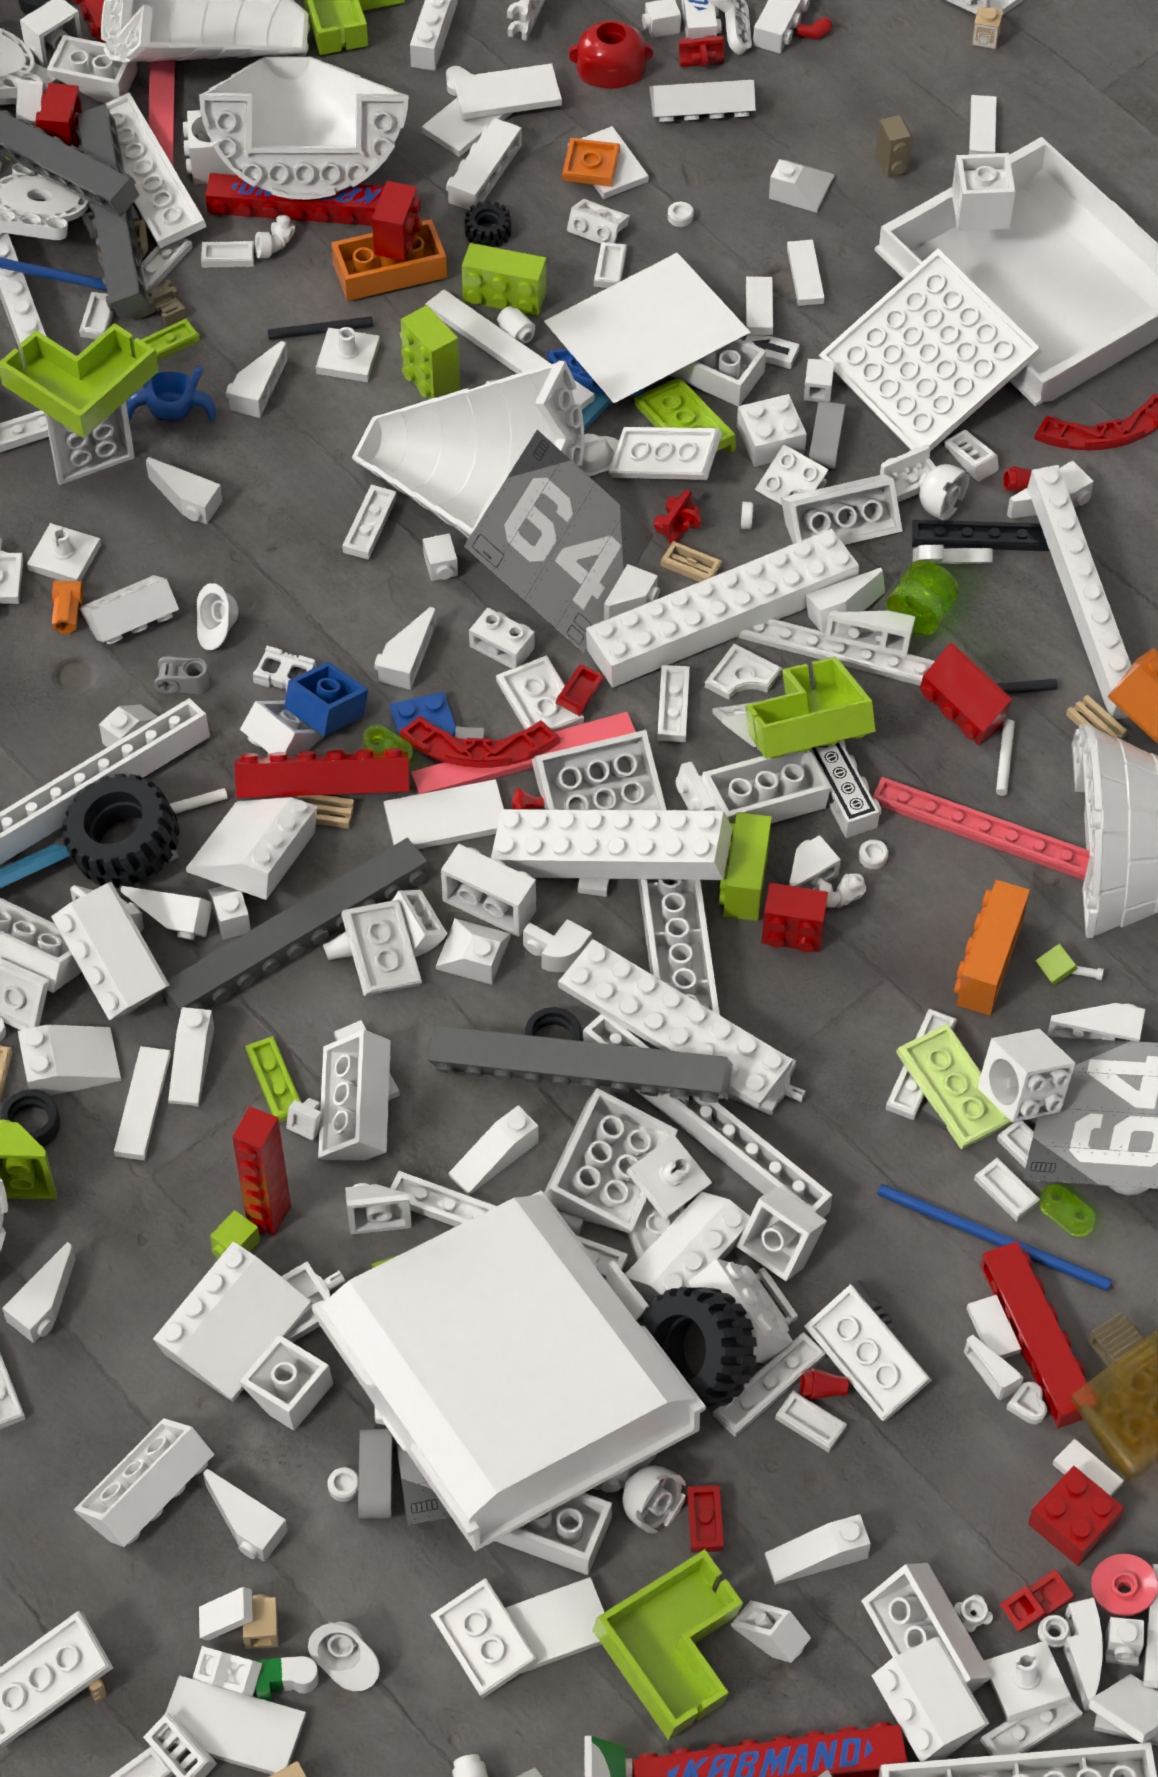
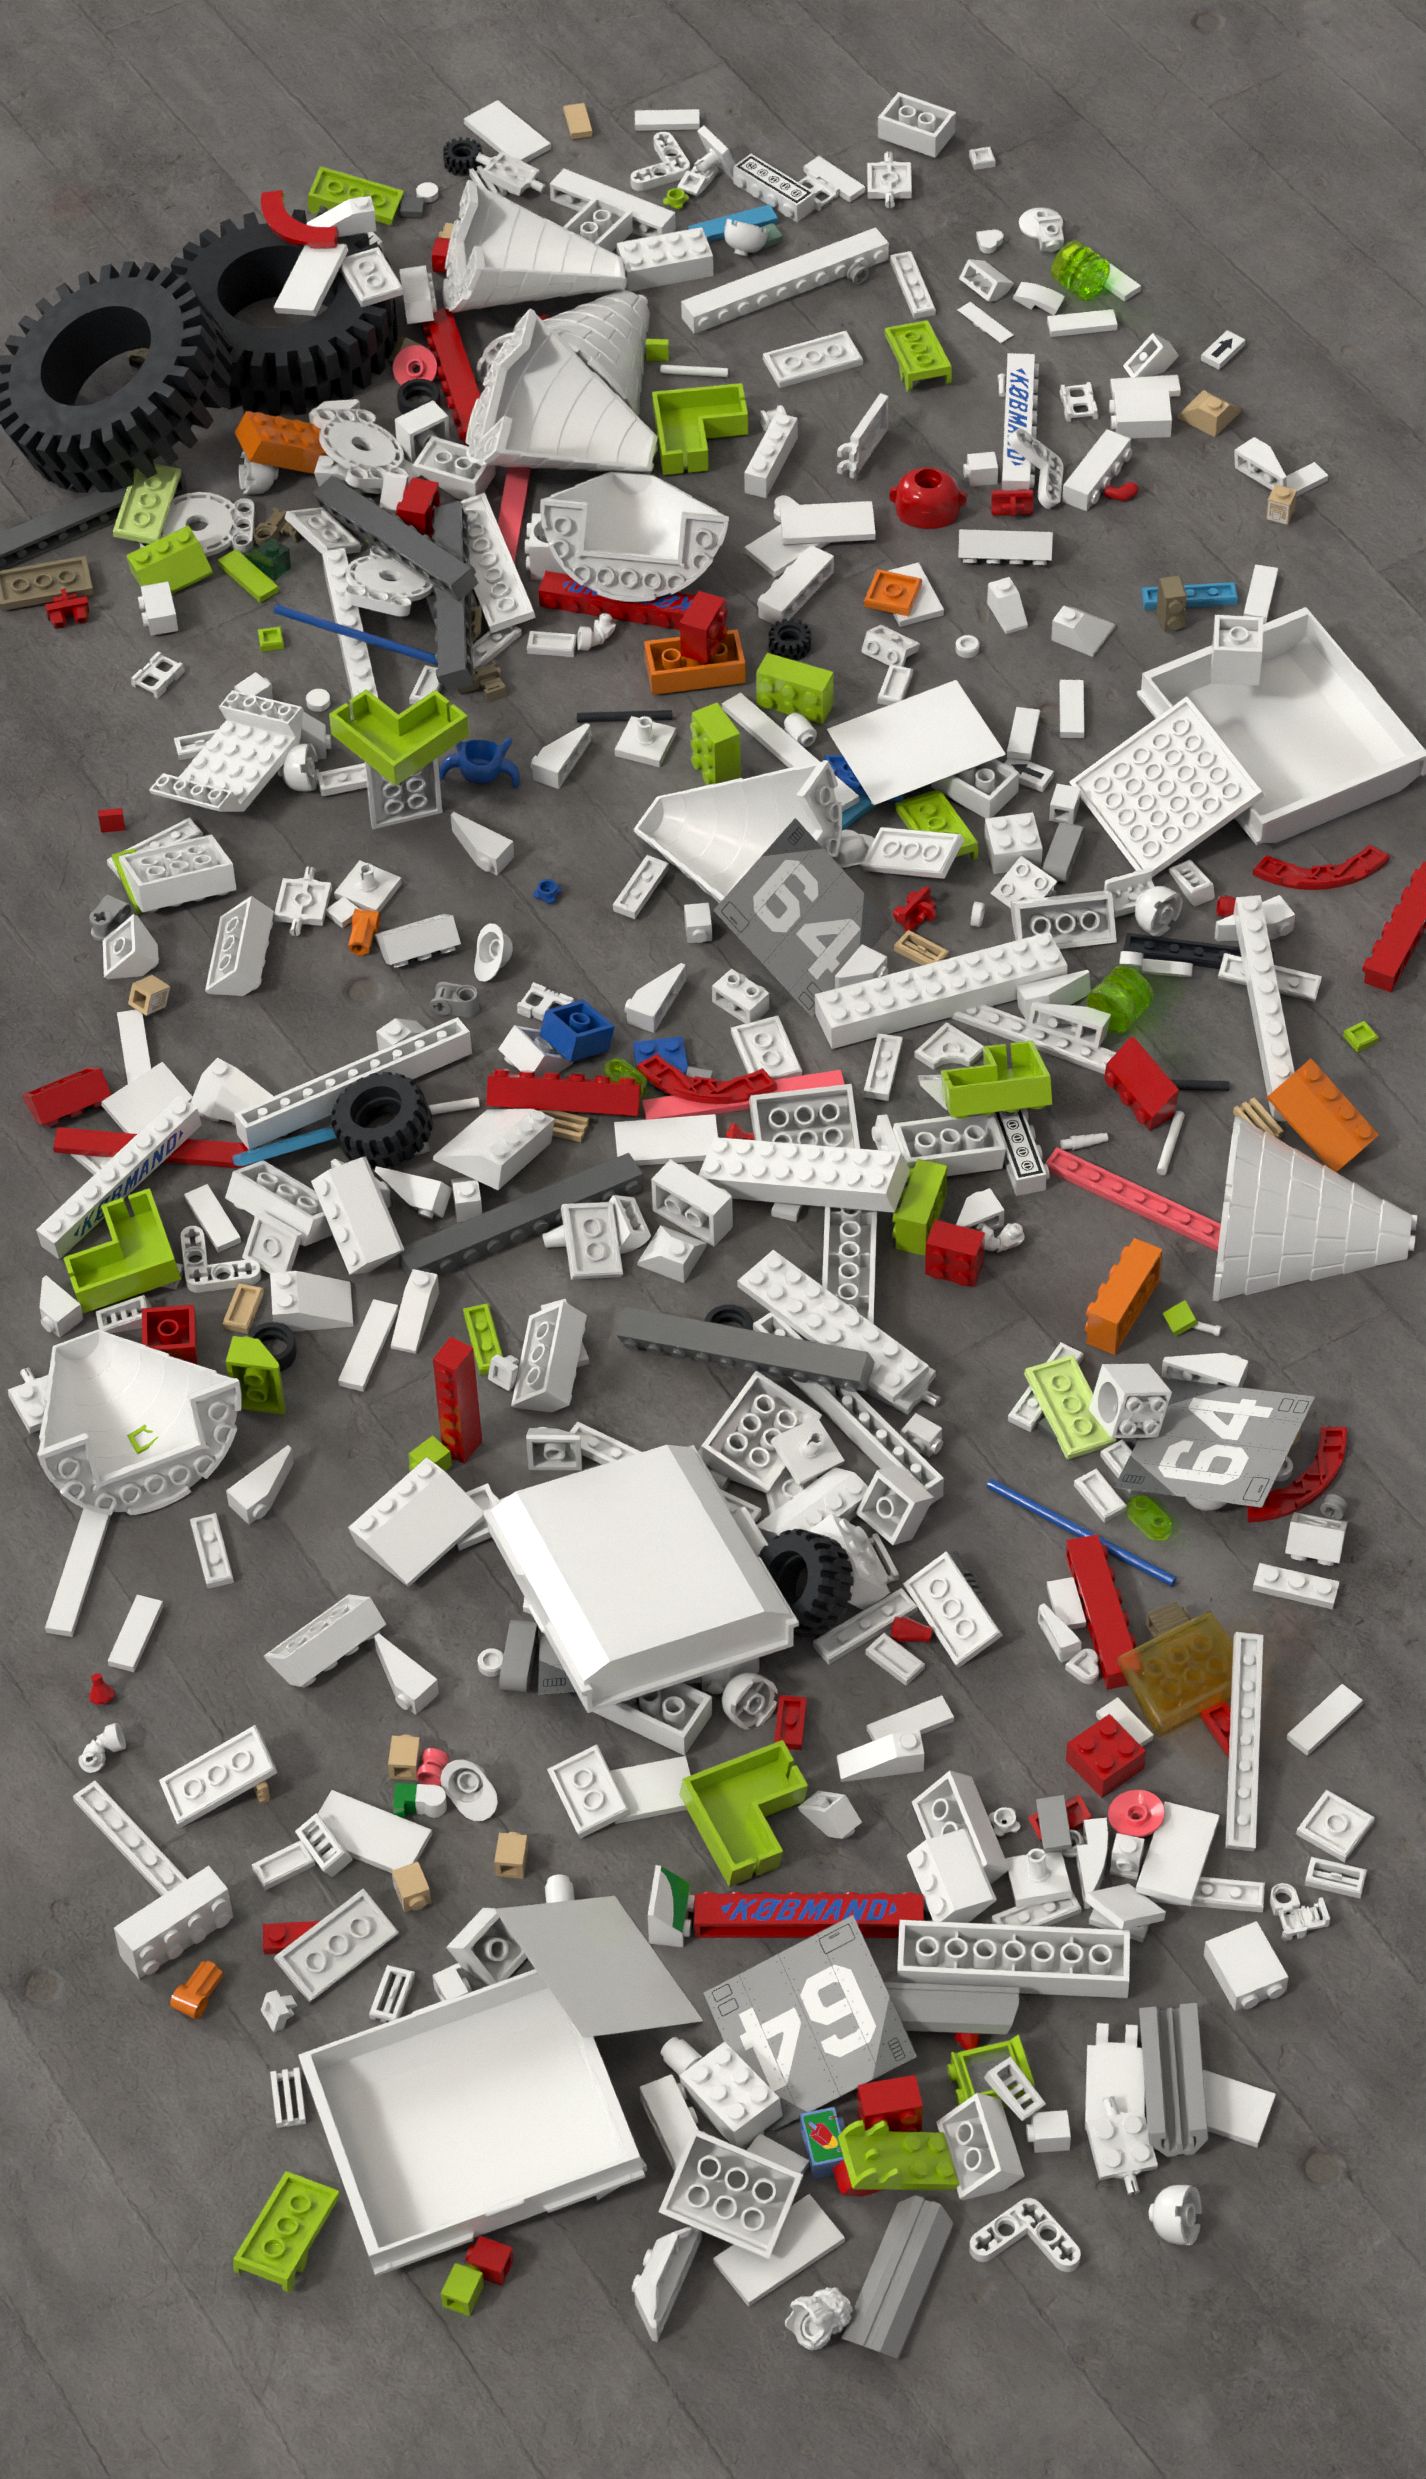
camera: 10 degrees right, 5 degrees down
(38, 585) = (341, 912): none -> white tile
(172, 339) = (489, 714): lime tile -> none
(225, 1613) = (376, 1745): white tile -> none
(227, 1671) = (371, 1789): white slope -> none
(266, 531) = (547, 891): none -> blue plate
(287, 1382) = (456, 1575): white slope -> none
(295, 1631) = (432, 1765): none -> coral wheel
(405, 1733) = (511, 1855): none -> tan brick
(496, 1150) = (664, 1414): white slope -> none
(560, 950) = (743, 1257): white brick -> none
(580, 689) = (802, 1047): red tile -> none
(715, 164) = (1006, 605): none -> white slope
(796, 1141) = (923, 1435): none -> white brick
(844, 1498) = (921, 1717): none -> white tile
(873, 854) = (1037, 1211): white tile -> none
(908, 766) = (1081, 1141): none -> white animal
(923, 134) = (1197, 595): none -> dark azure tile
(1034, 1612) = (1054, 1824): none -> light grey tile
(1106, 557) = (1289, 981): none -> white tile

